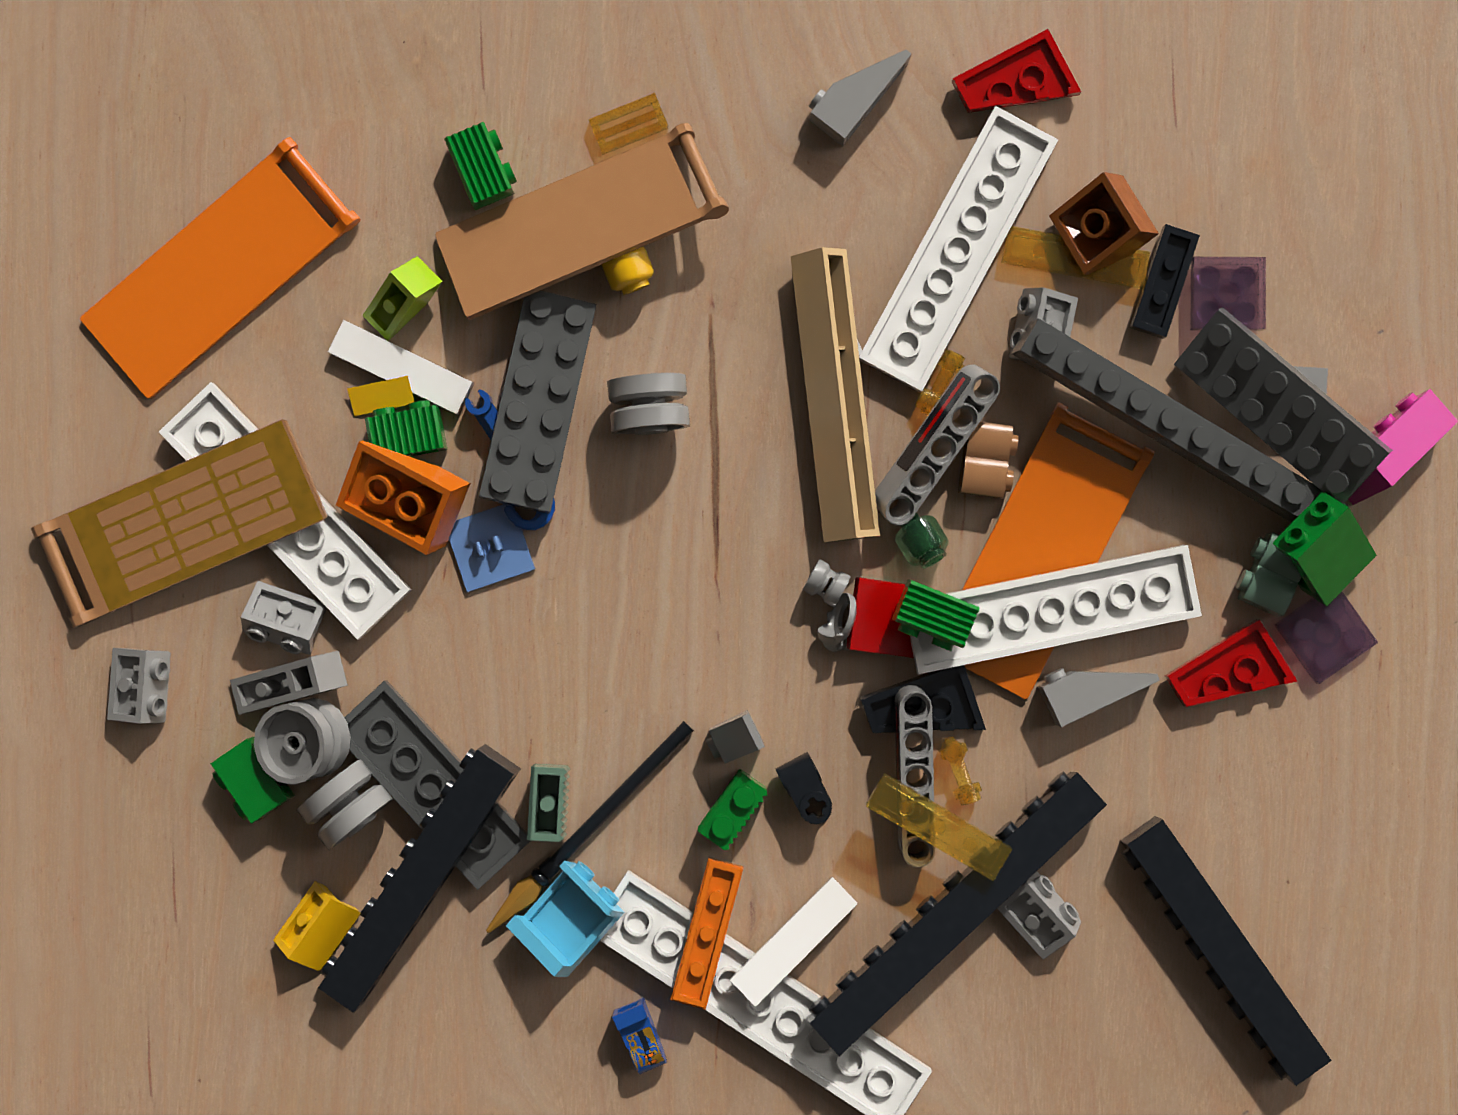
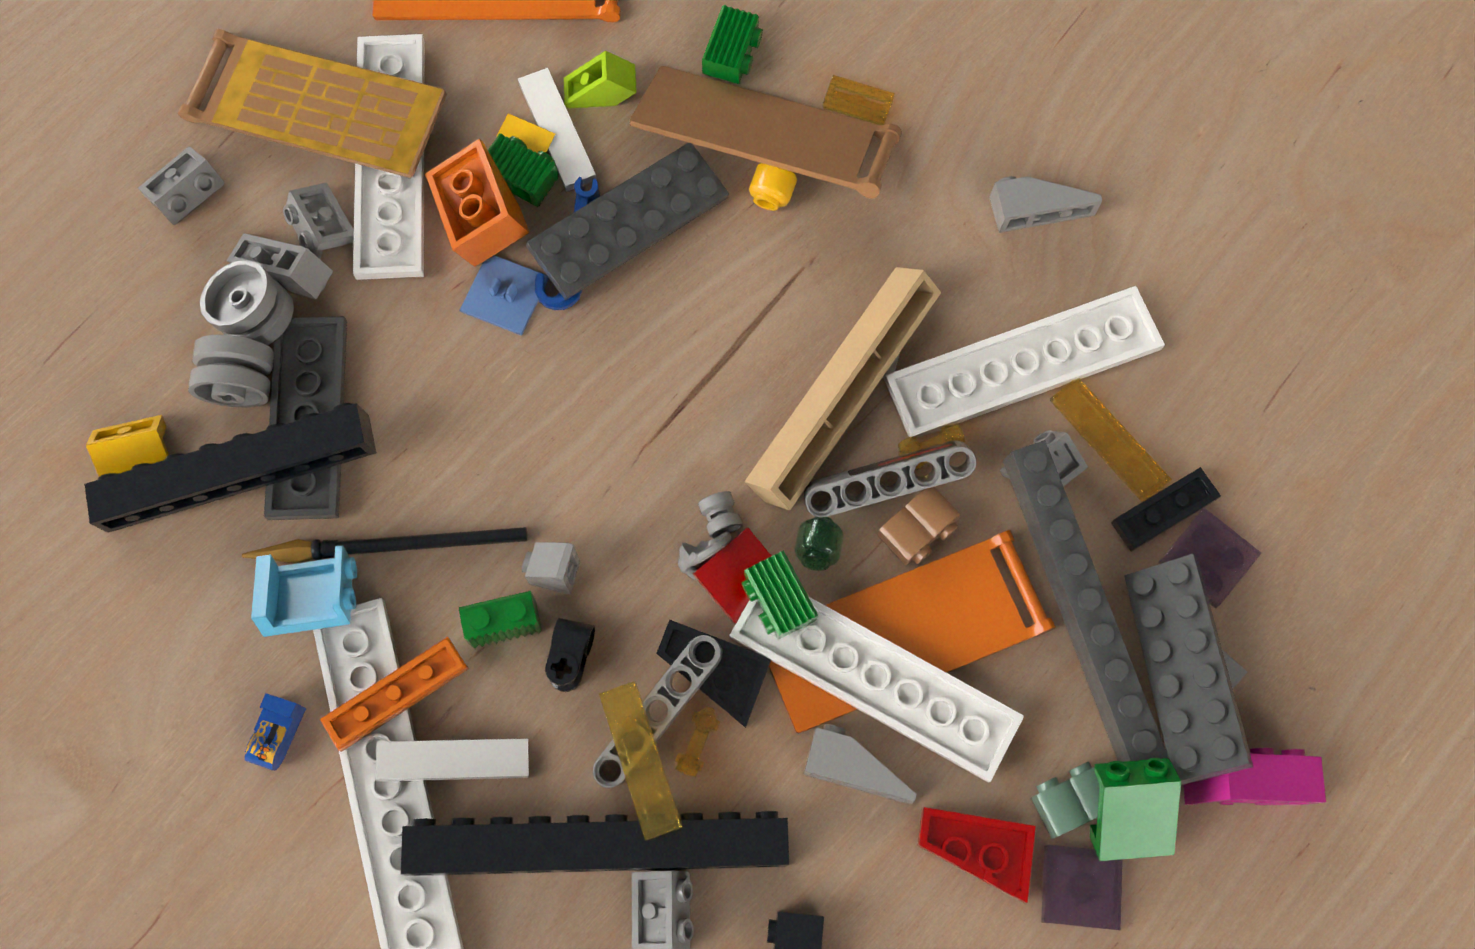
camera: 40 degrees right, 15 degrees down
(253, 790) = (181, 316): green brick -> none
(548, 802) = (373, 495): sand green brick -> none
(648, 399) = (703, 279): light grey wheel -> none
(1018, 76) = (1169, 281): red wing -> none
(1103, 223) = (1152, 426): dark orange slope -> none

